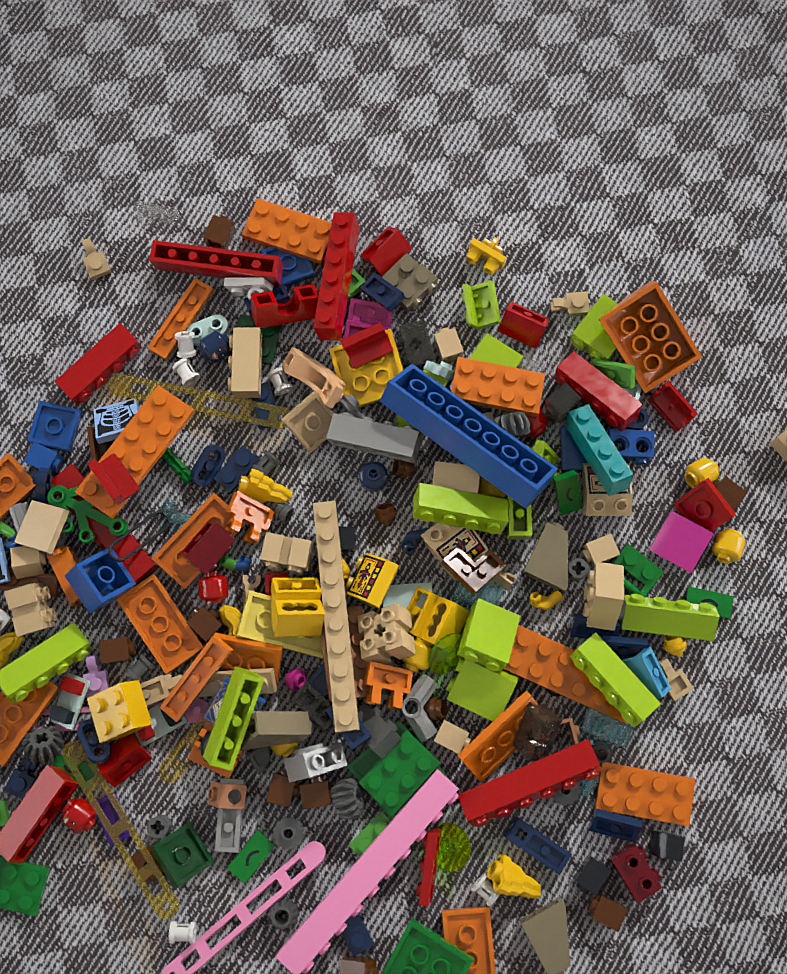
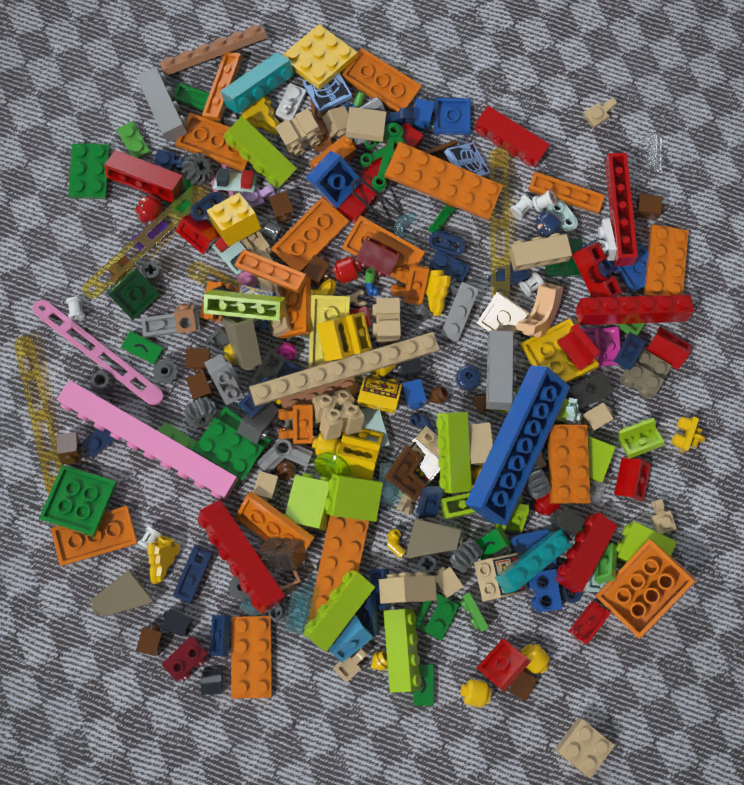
camera: 70 degrees right, 0 degrees up
(114, 478) = (416, 168): red panel -> none
(293, 468) = (459, 311): none -> light grey plate
(350, 405) = (524, 345): light grey plate -> none
(379, 541) = (414, 394): none -> blue brick
(428, 867) = (159, 488): red plate -> none
(450, 859) = (177, 502): clear neon green dish -> none
(508, 550) = (429, 502): none -> dark blue plate
(576, 522) = (466, 555): none -> dark grey gear
(648, 526) = (477, 619): none -> bright green plate
(681, 541) = (470, 650): dark pink slope -> none

